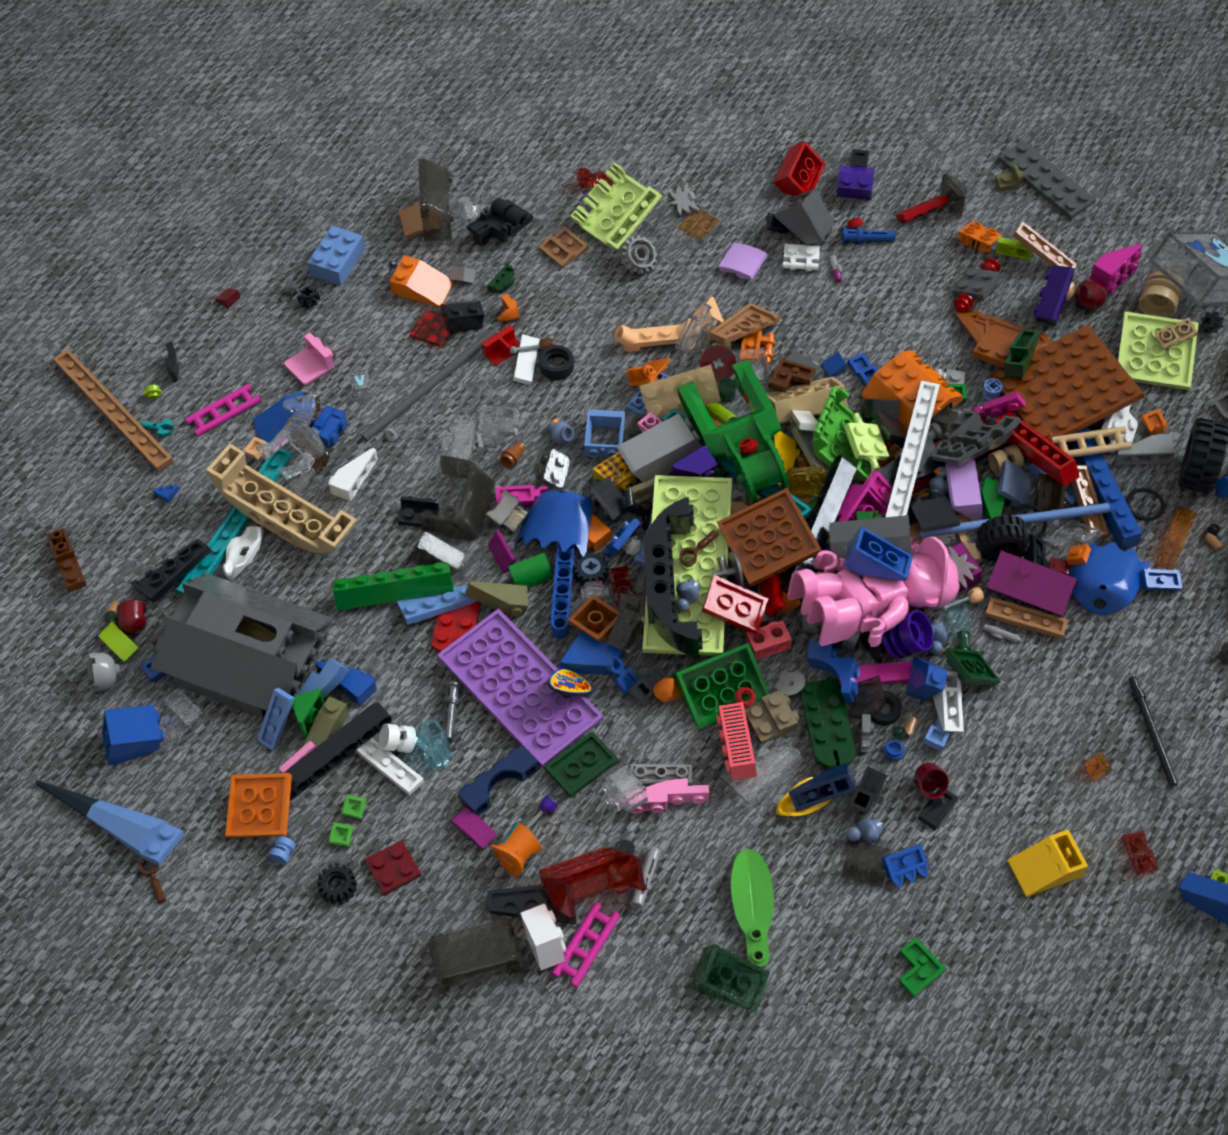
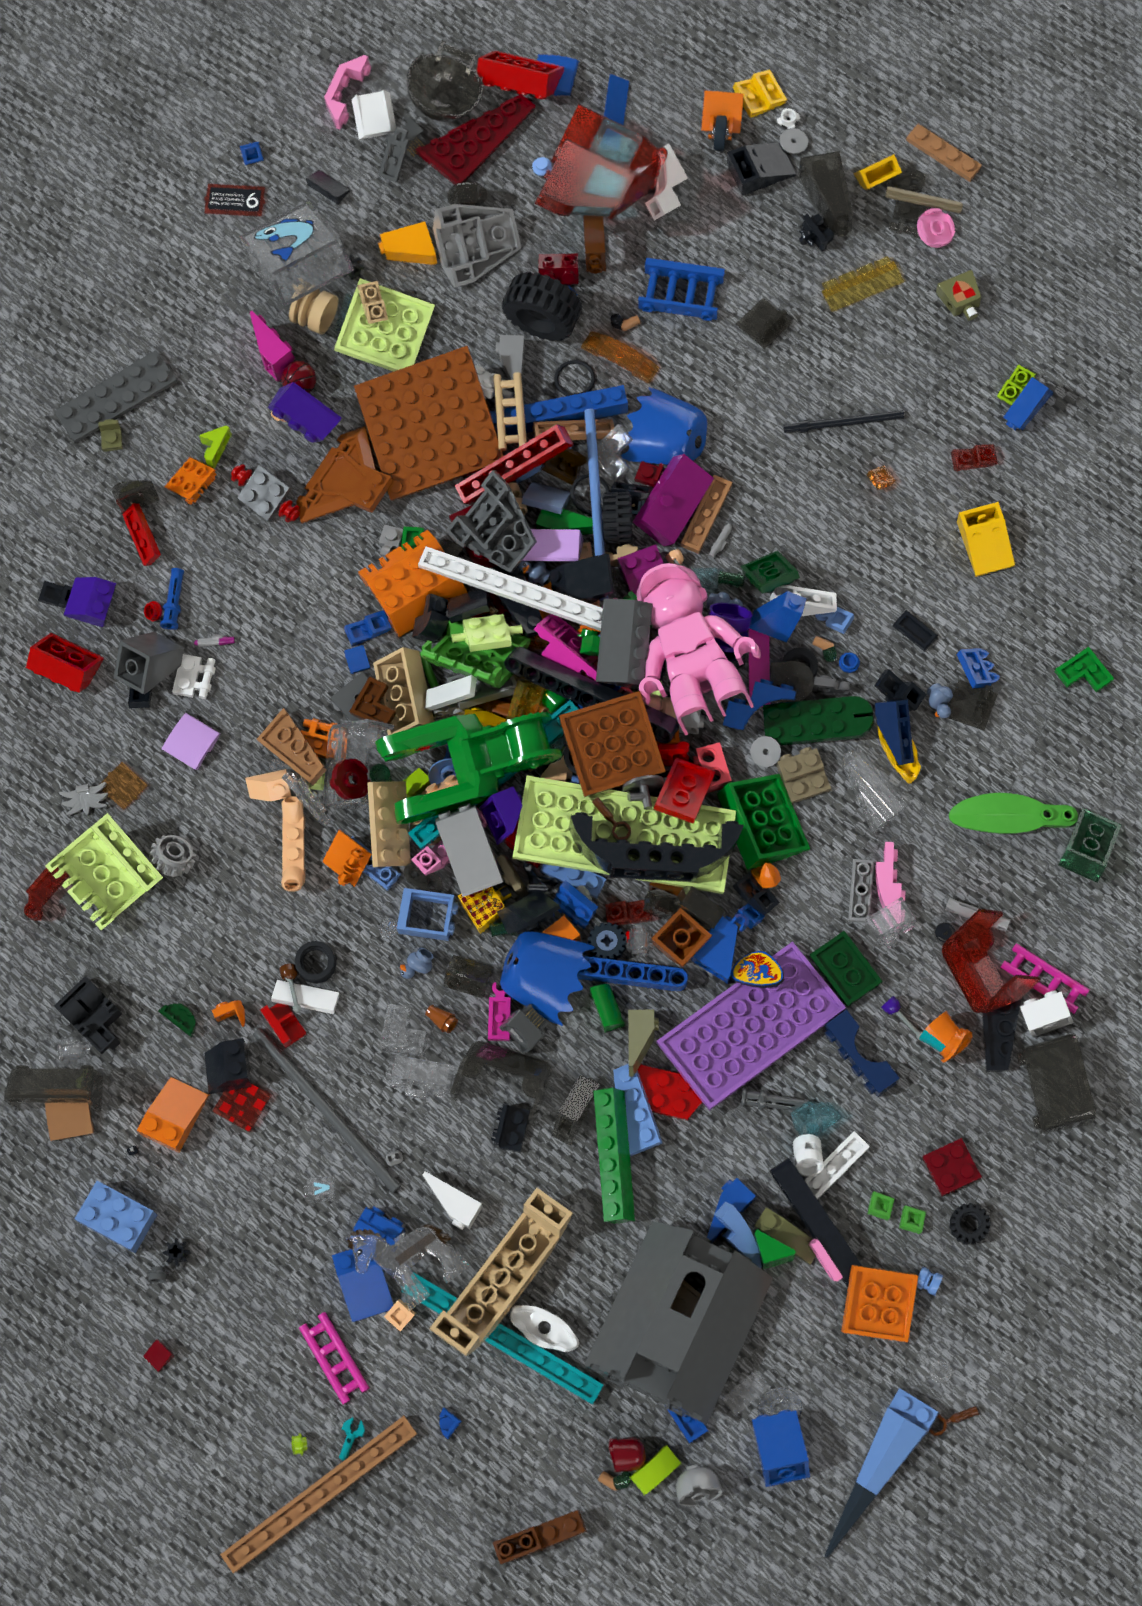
camera: 80 degrees left, 15 degrees up
(159, 581) = (573, 1416): black wing -> none
(172, 363) = (264, 1420): black slope -> none
(275, 719) = (780, 1283): medium blue plate -> none
(311, 361) = (277, 1251): bright pink bracket -> none
(462, 274) = (165, 1065): light grey slope -> none
(474, 827) = (913, 1081): magenta slope -> none
(501, 552) = (575, 1037): magenta slope -> none
(563, 247) = (137, 944): medium nougat slope -> none
(687, 593) = (670, 834): sand blue animal -> none
(737, 741) = (839, 807): coral brick -> none
(745, 690) = (786, 792): red plate -> none
(748, 446) = (496, 752): red plate -> none
(876, 557) = (662, 634): blue slope -> none
(936, 778) = (884, 631): dark red helmet -> none
(962, 566) = (647, 563): light grey piece -> none
(992, 389) = (418, 504): medium blue wheel -> none
(1001, 405) = (446, 499): dark pink plate -> none
(1021, 353) = (379, 459): dark green slope -> none
(1041, 246) = (232, 413): medium nougat plate -> none
(1078, 554) = (640, 450): orange plate -> none
(1154, 422) = (479, 347): orange plate -> none
(1161, 580) = (674, 379): plate -> none

